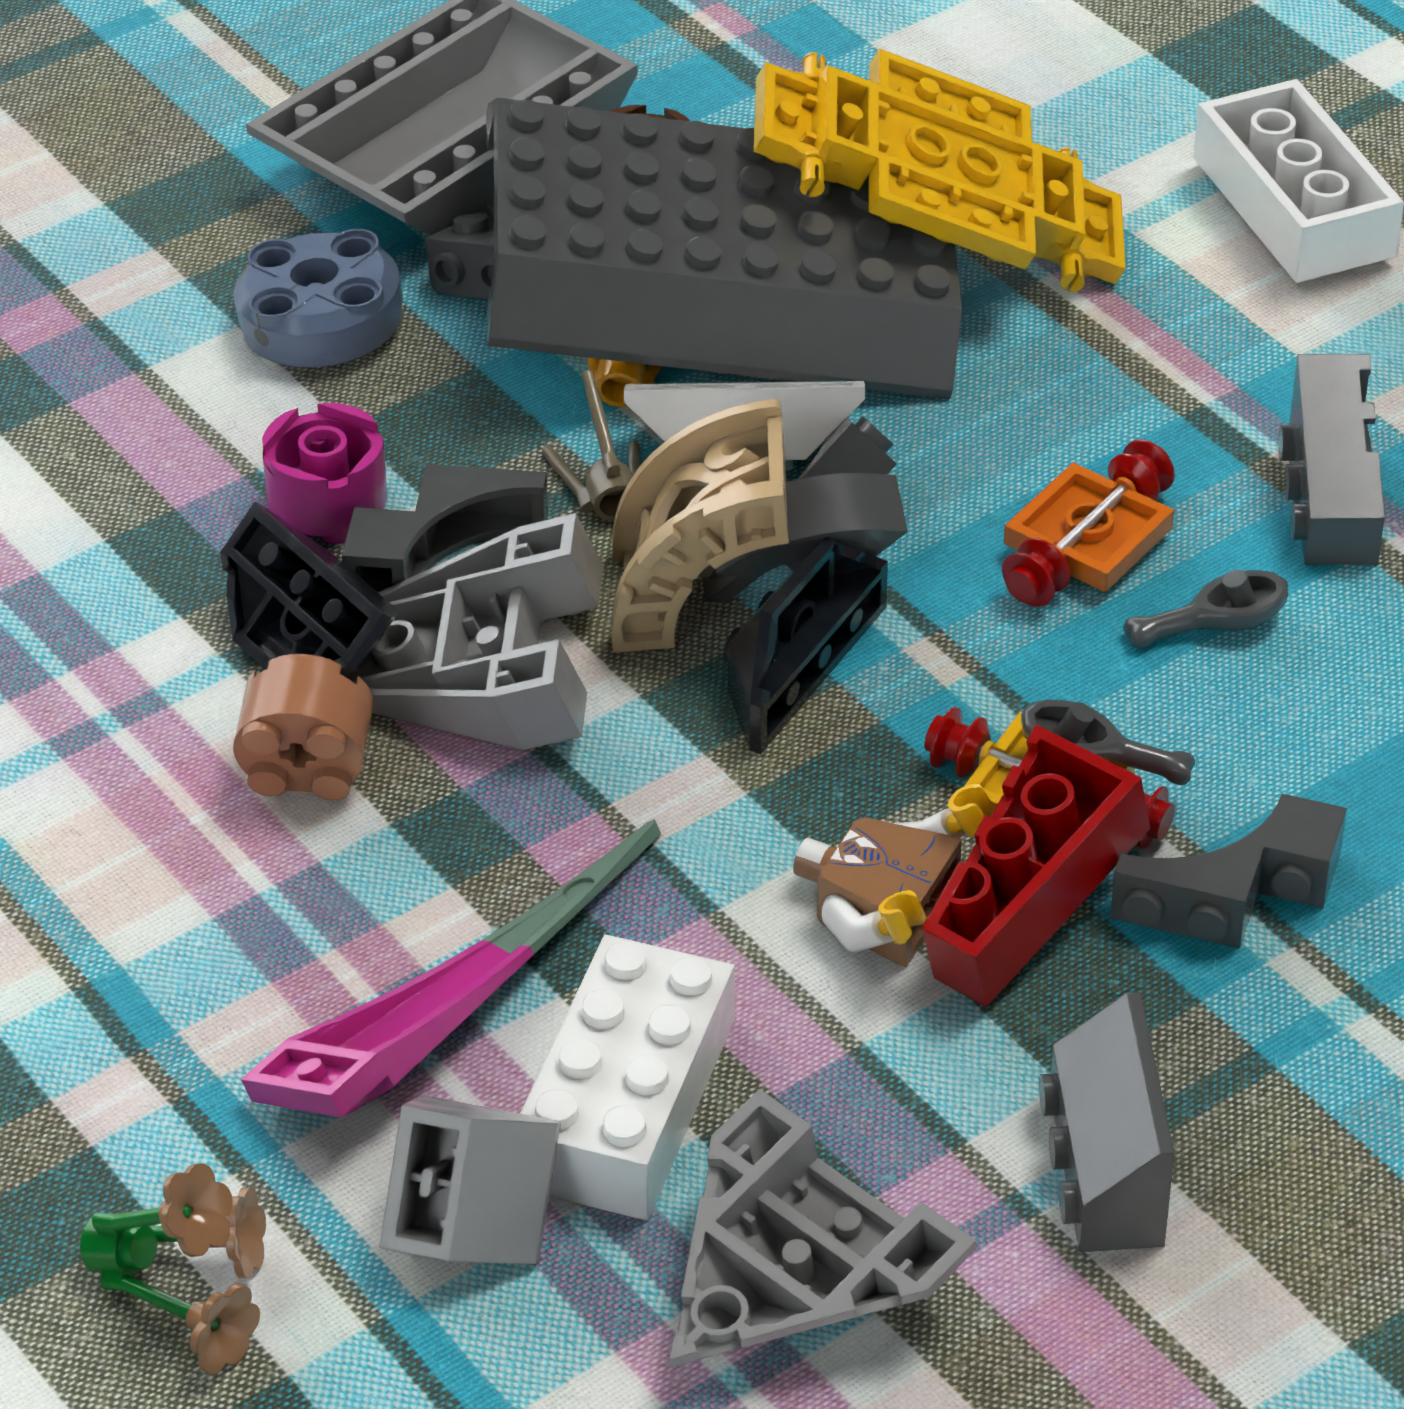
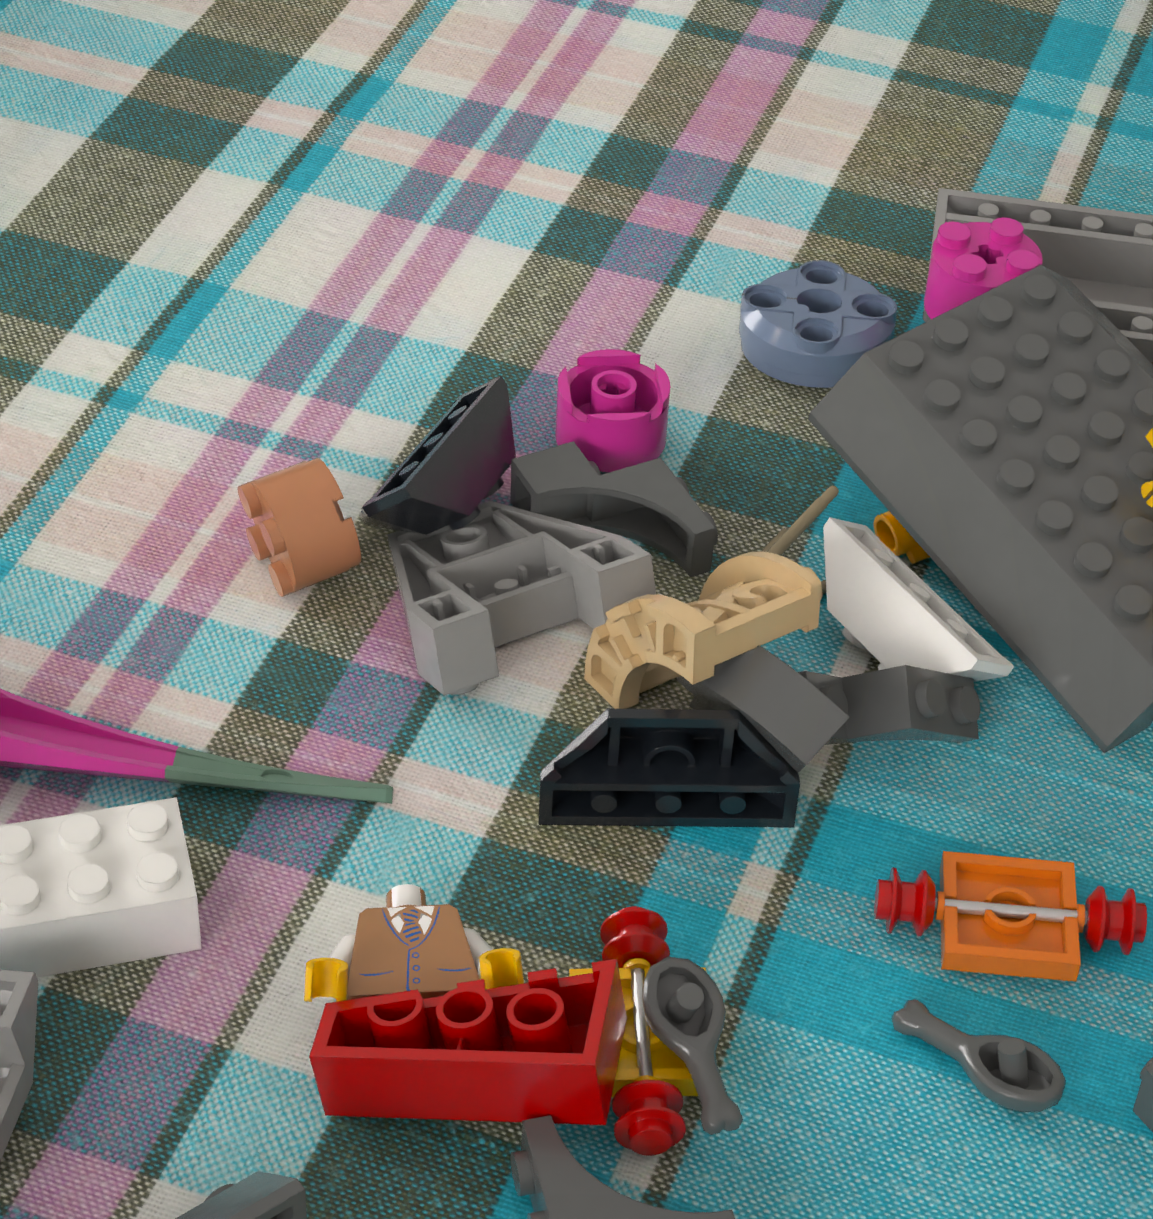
camera: 55 degrees right, 0 degrees up
(429, 151) = (975, 259): none -> dark pink brick

